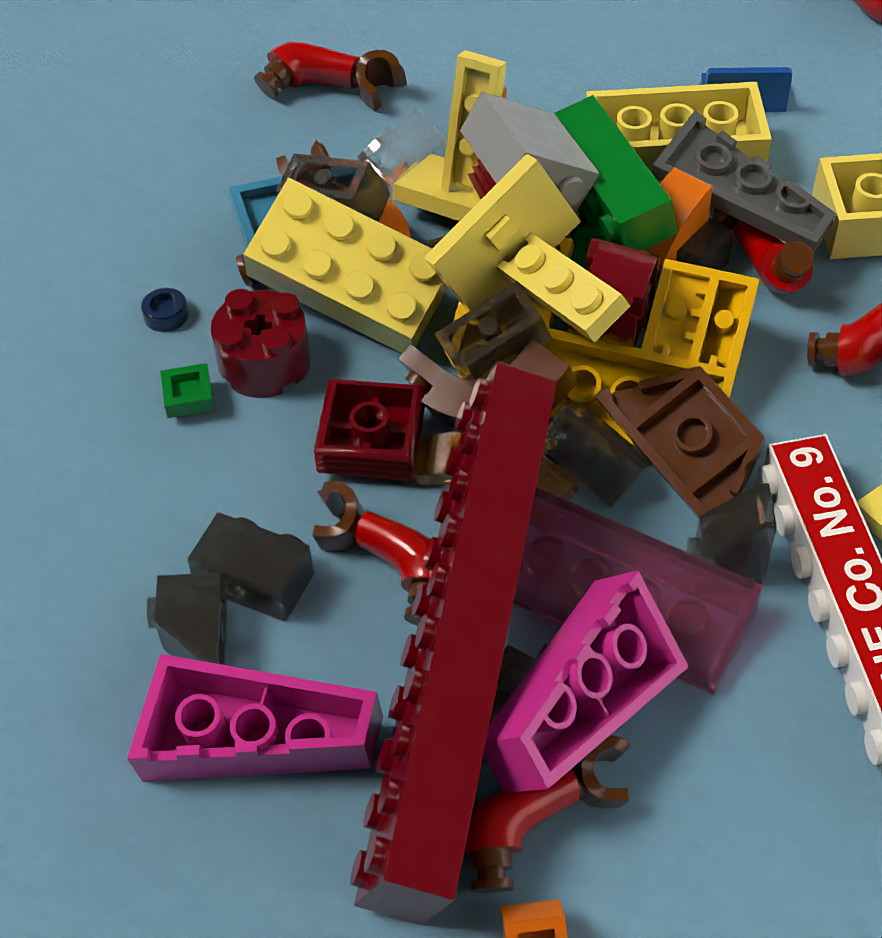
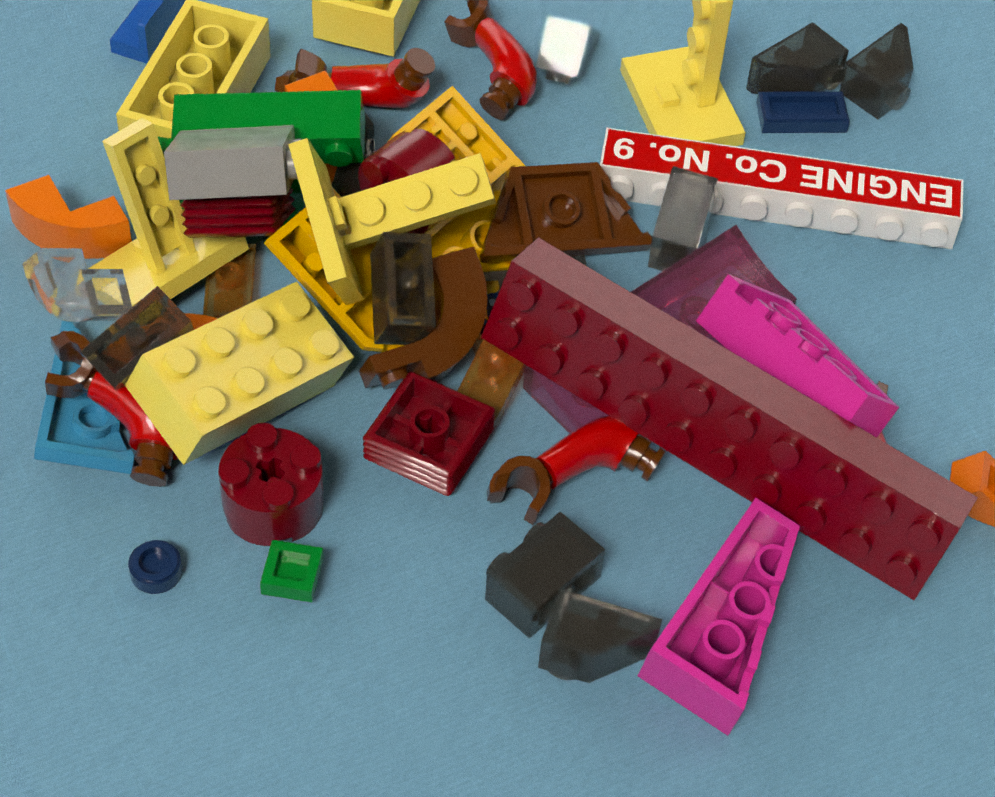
camera: 75 degrees left, 0 degrees up
(744, 185) = (343, 54): dark grey wing -> none

